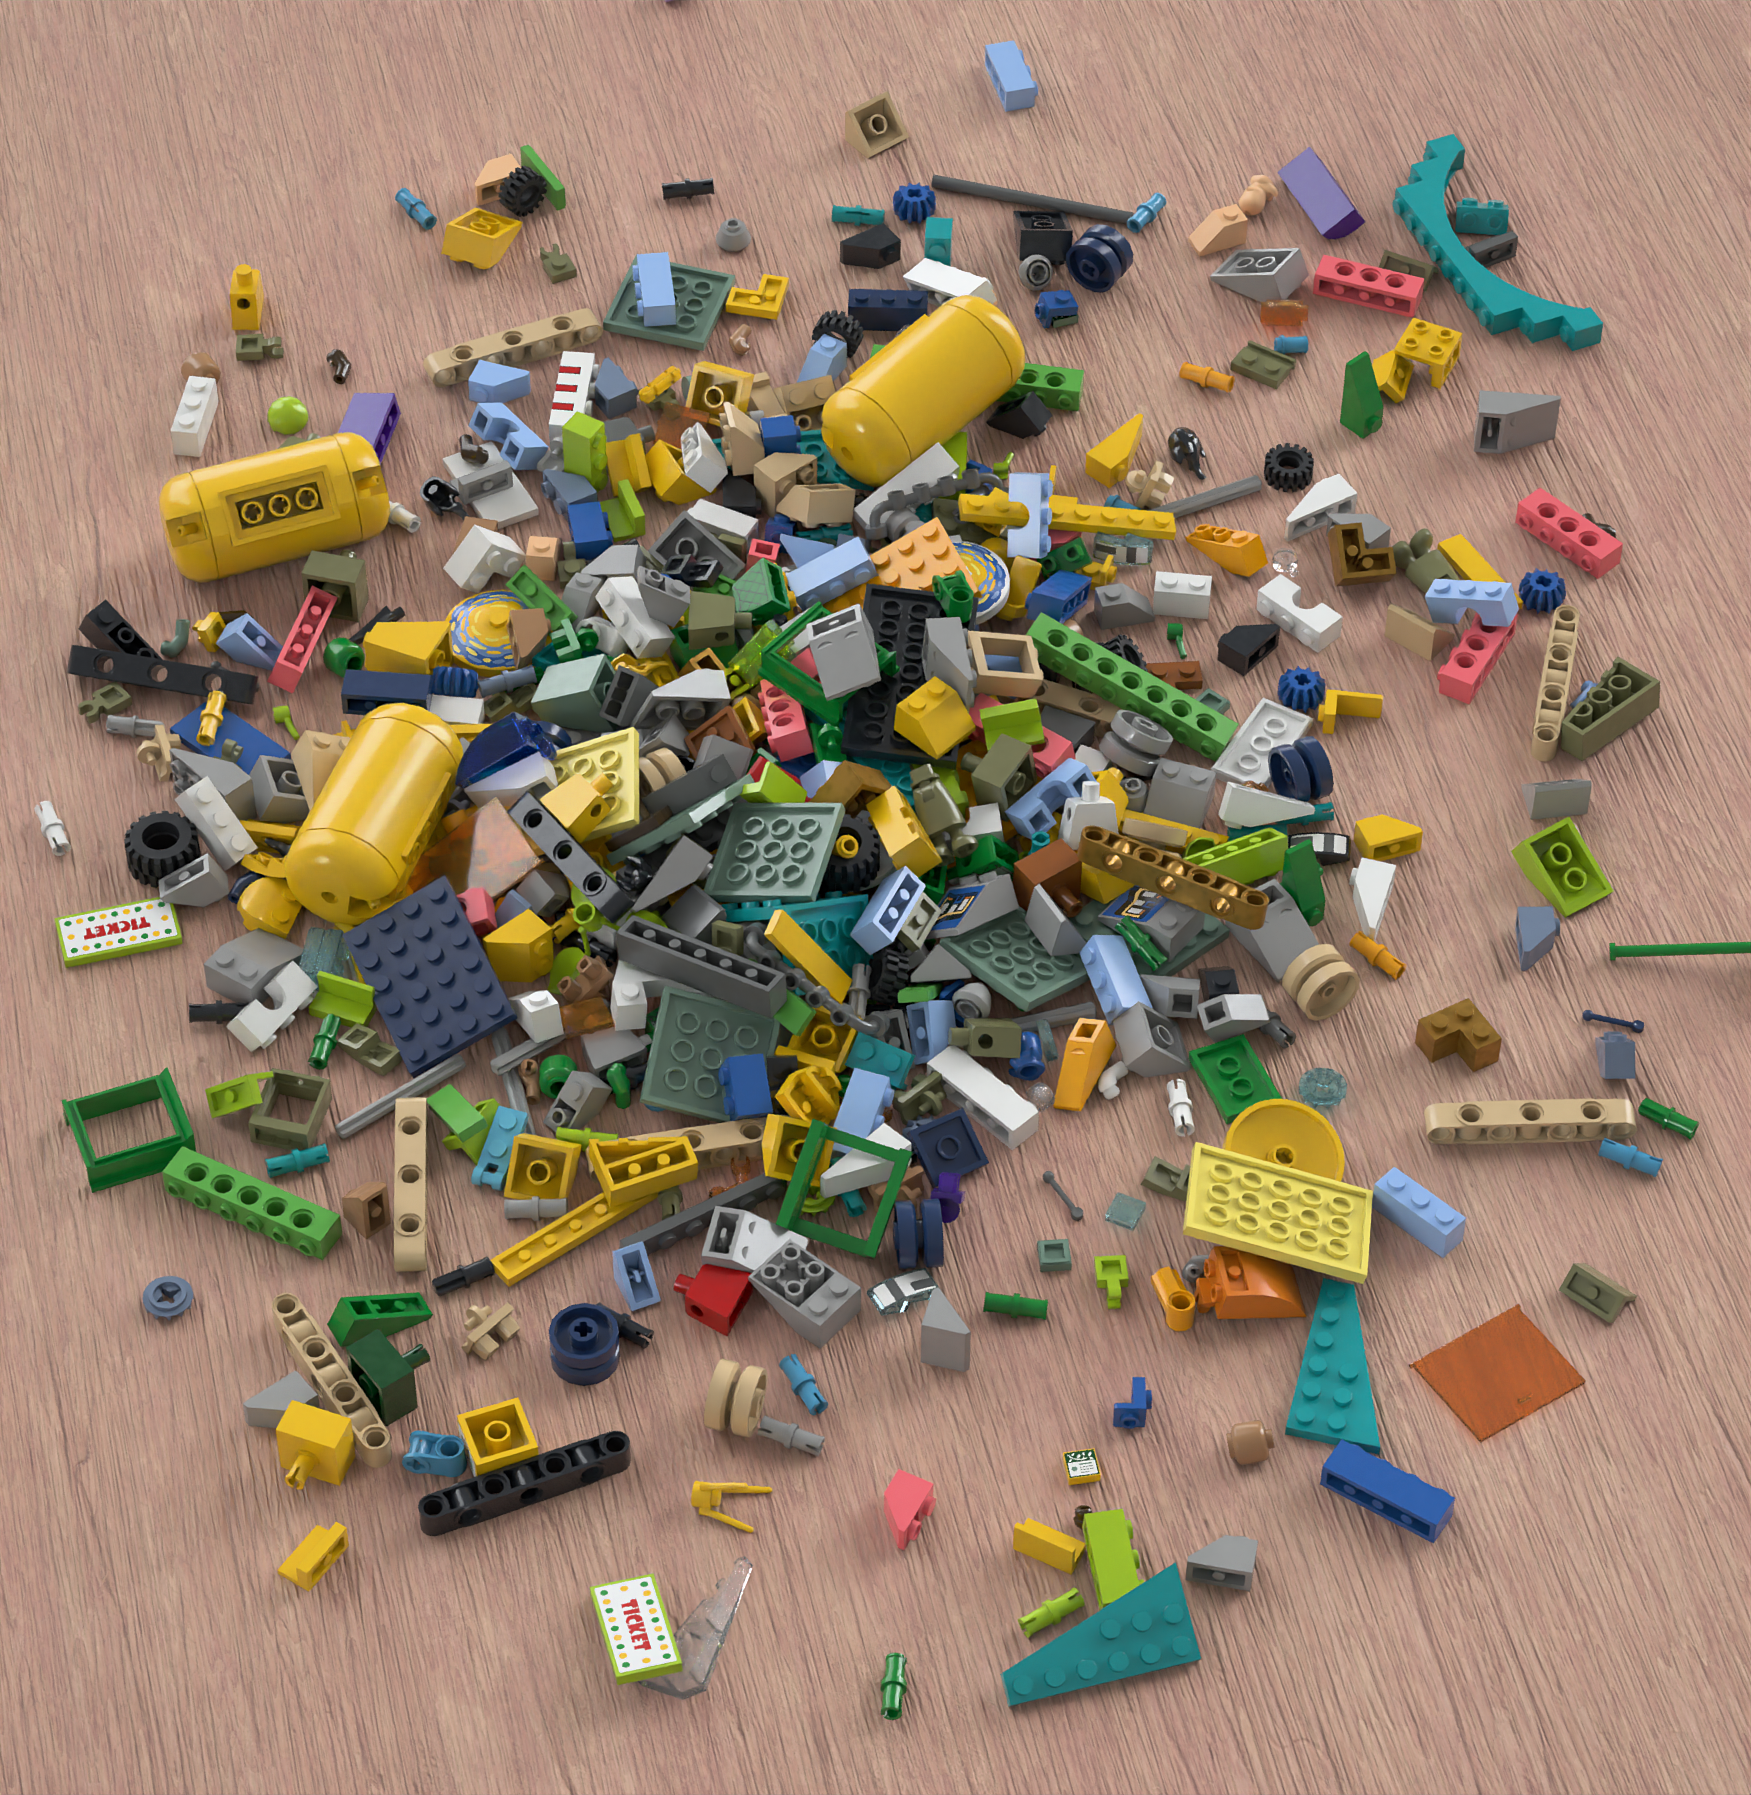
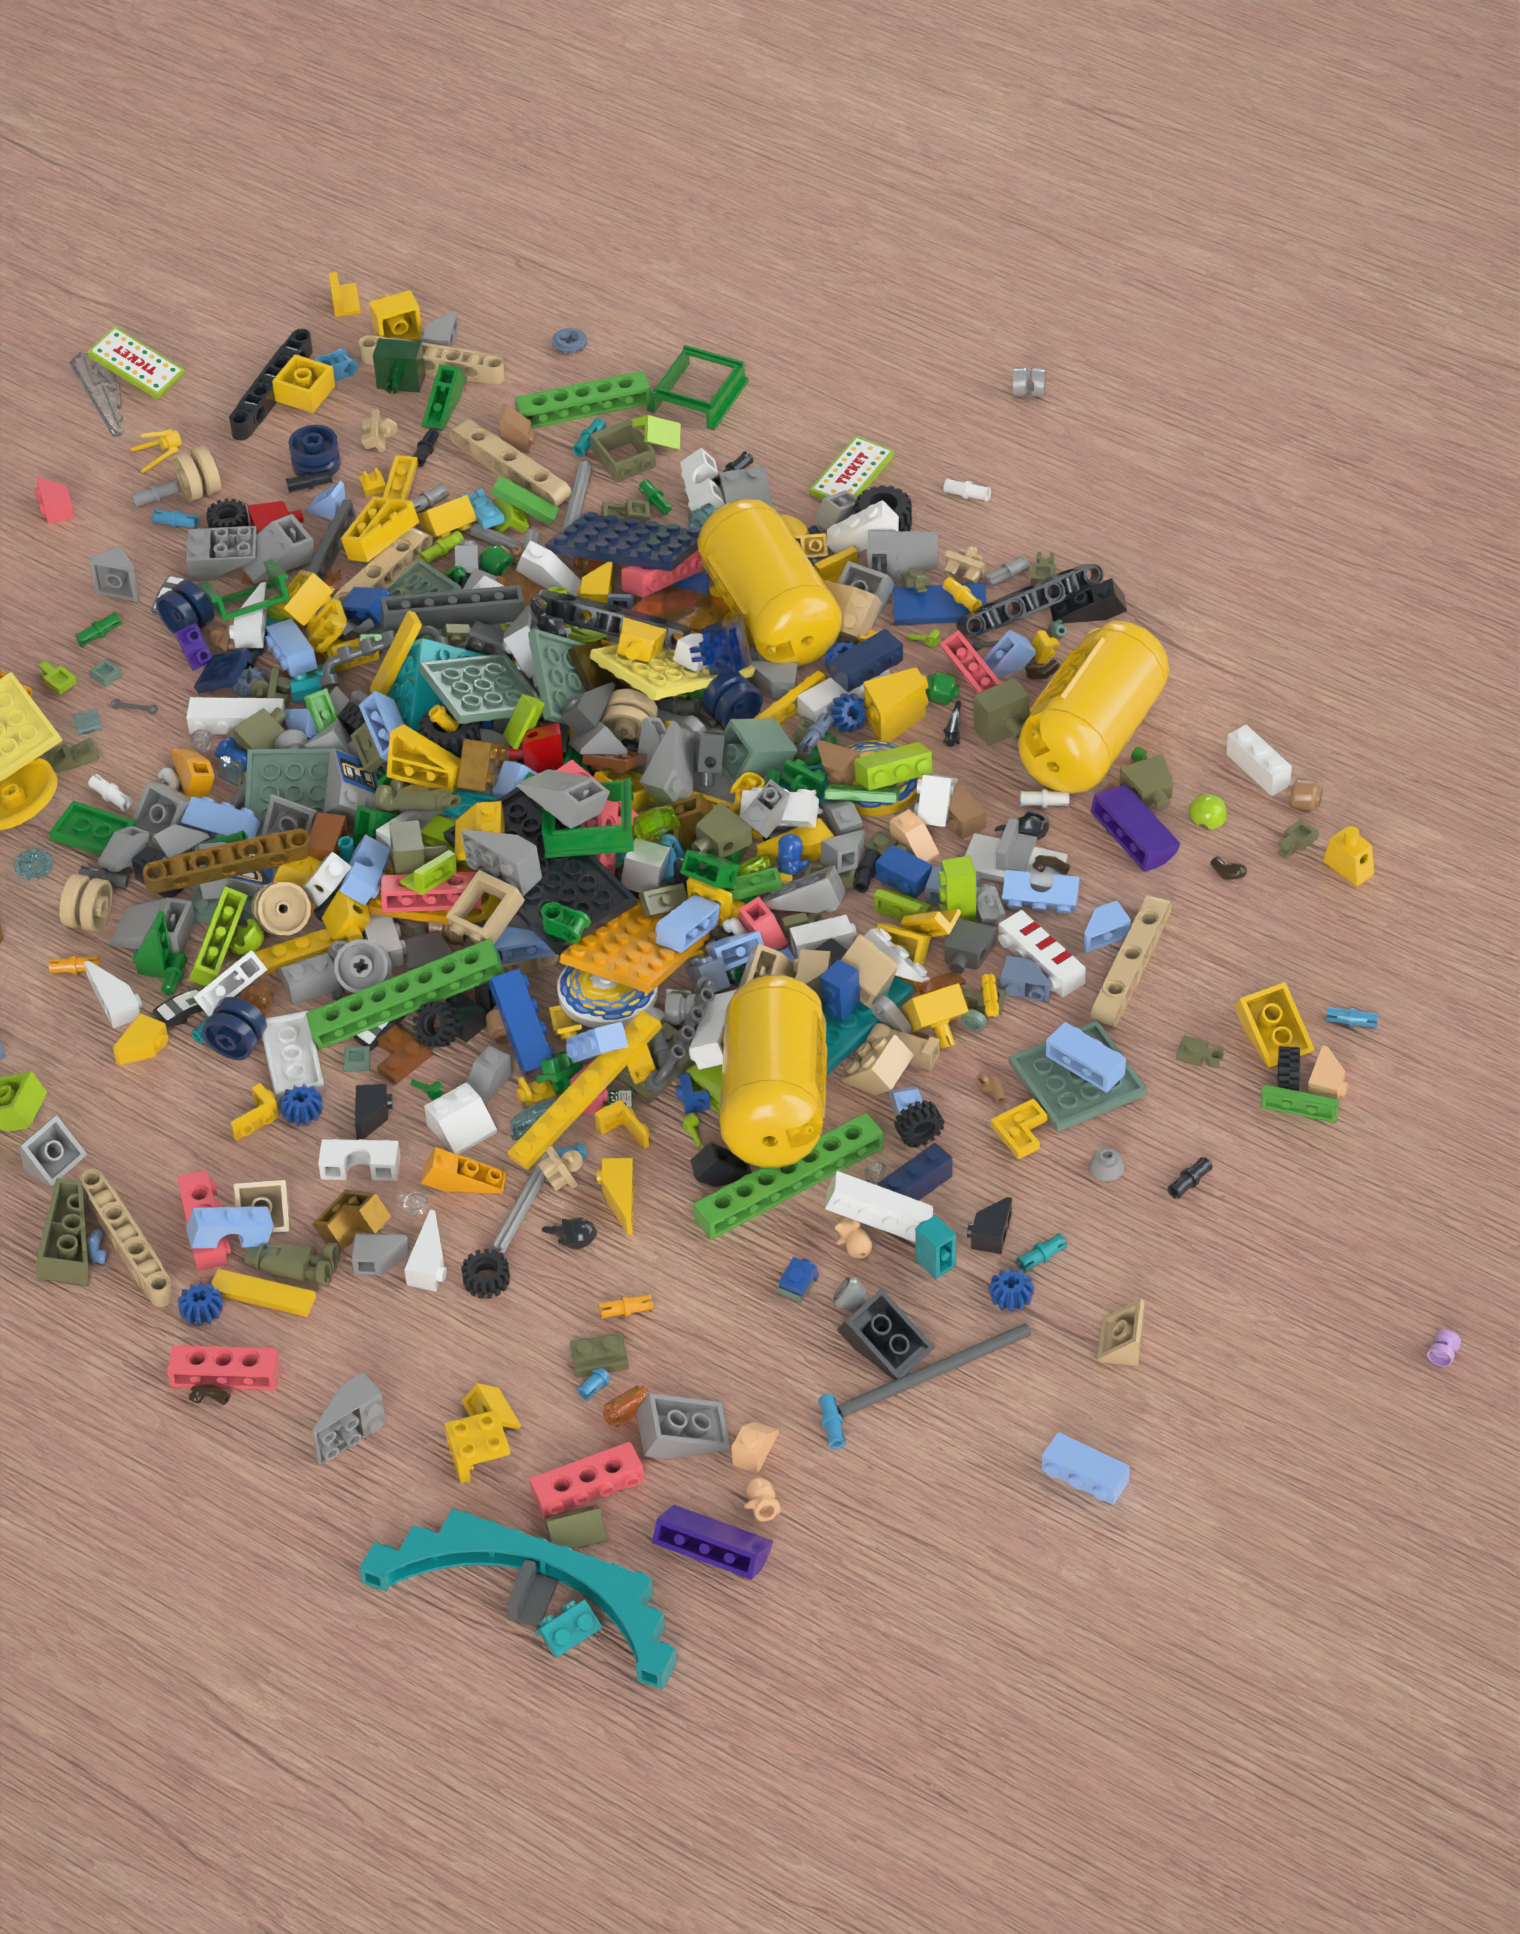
camera: 140 degrees right, 0 degrees up
(343, 998) = (675, 516): lime panel -> none
(492, 588) = (893, 766): none -> lime brick
(561, 1278) = (372, 483): none -> yellow tile
(691, 572) = (789, 868): black slope -> none
(752, 1327) = (224, 510): none -> black tyre
(826, 1039) = (357, 674): yellow slope -> none
(1099, 258) = (805, 1326): dark blue wheel -> none
(1361, 398) = (476, 1346): green slope -> none

